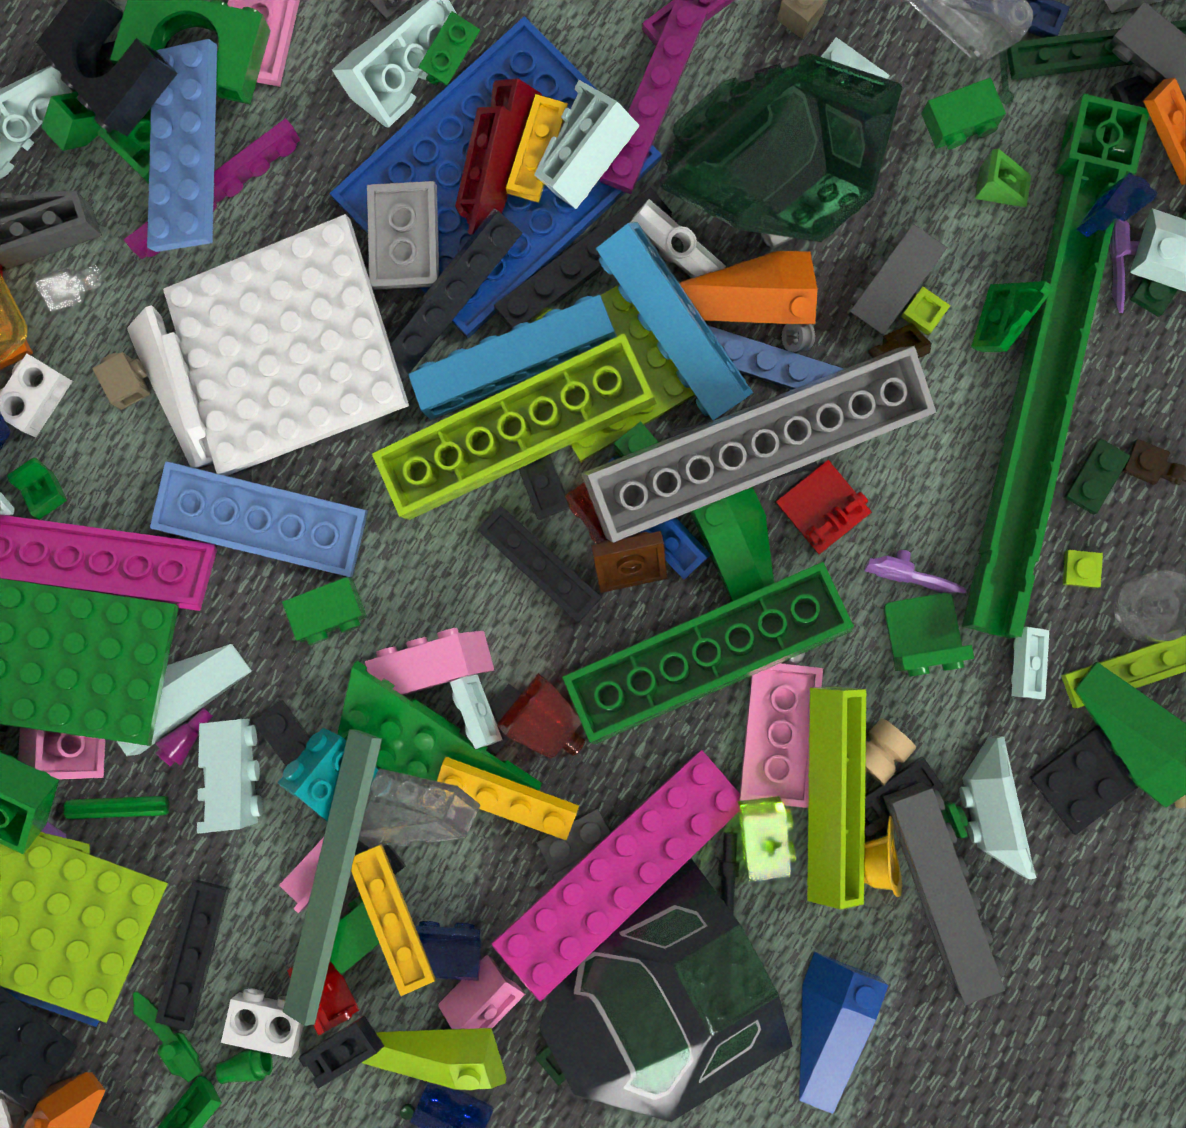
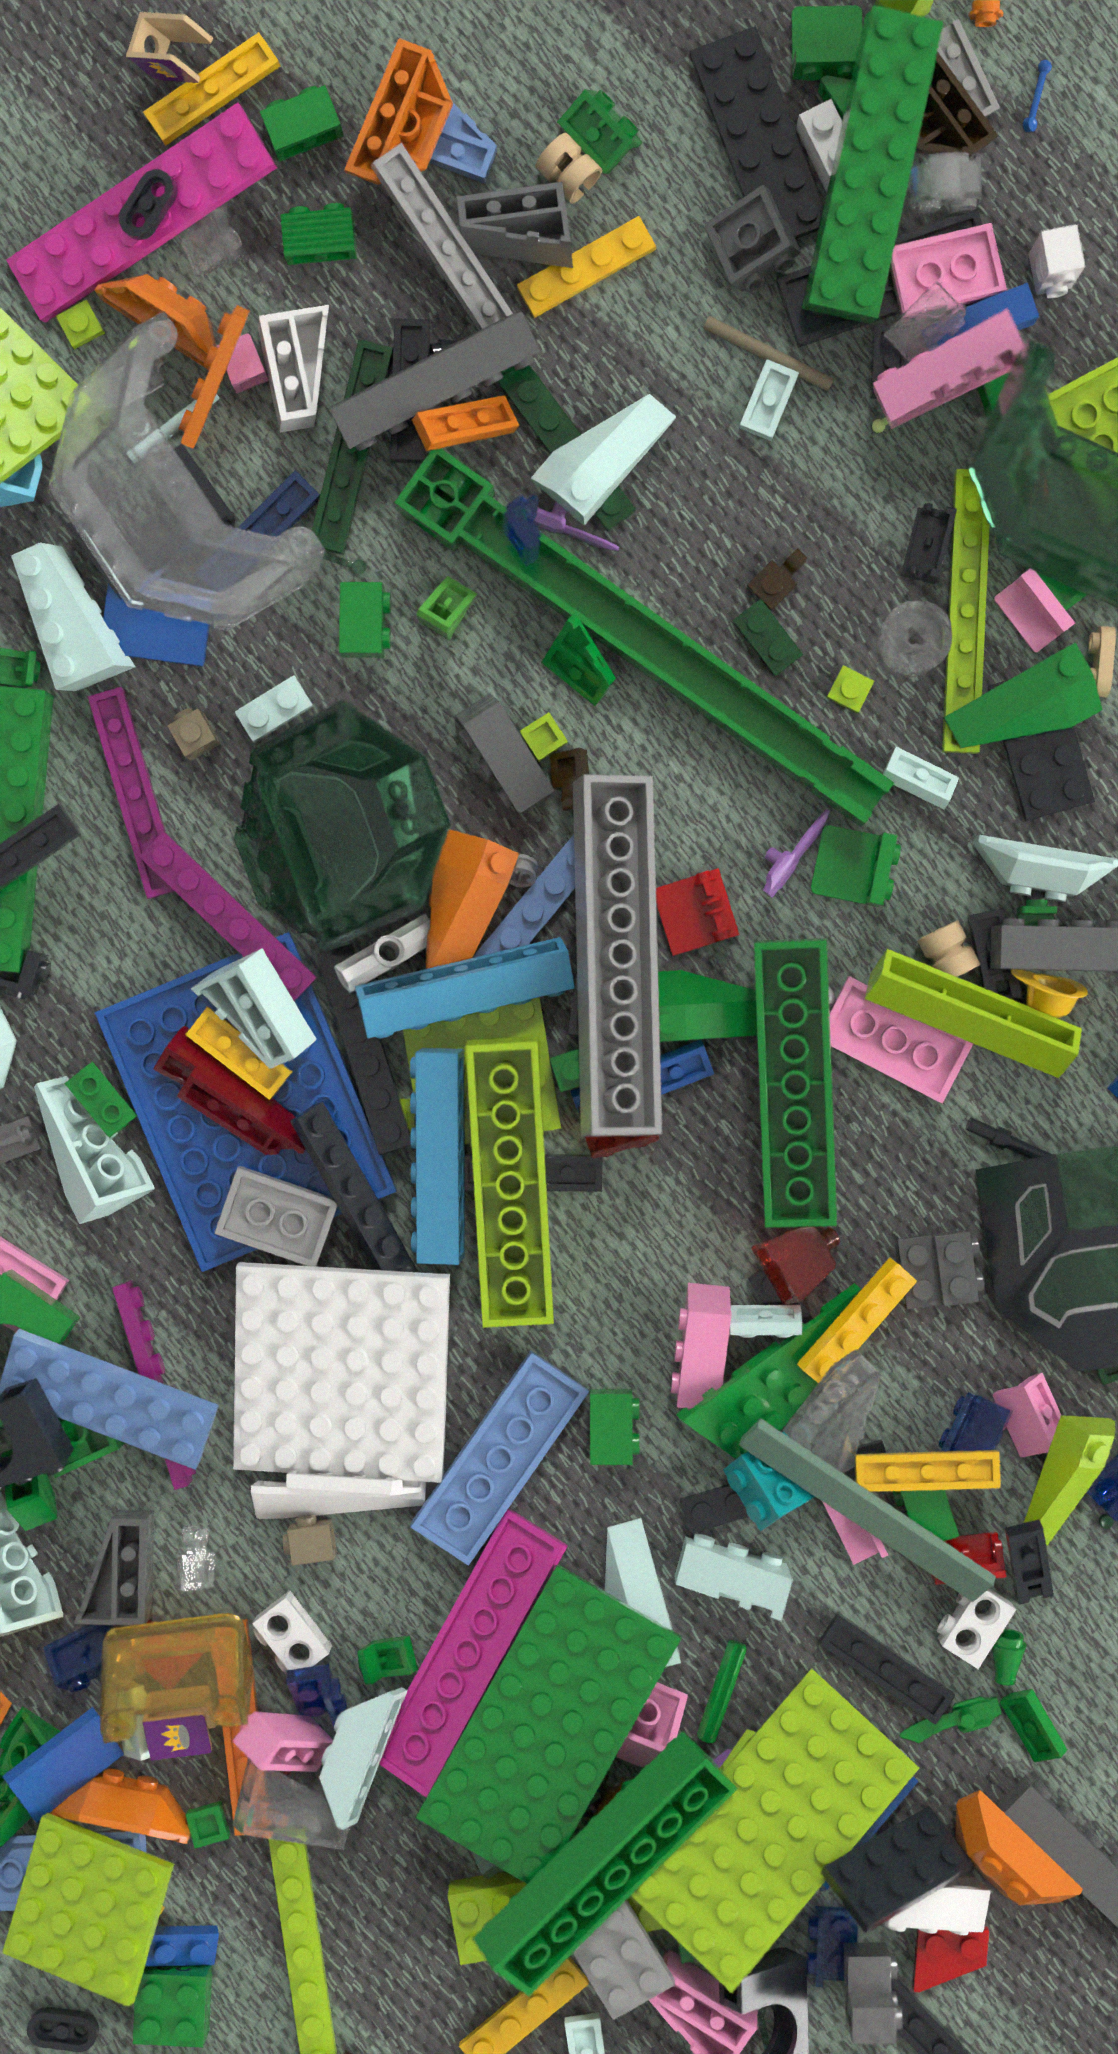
camera: 70 degrees left, 5 degrees up
(178, 743) = (684, 1611): magenta cone -> none
(539, 564) = (645, 1205): black plate -> none
(618, 875) = (967, 1243): dark pink plate -> none
(630, 561) = (680, 1120): reddish brown plate -> none
(764, 856) = (969, 1088): clear neon green brick -> none

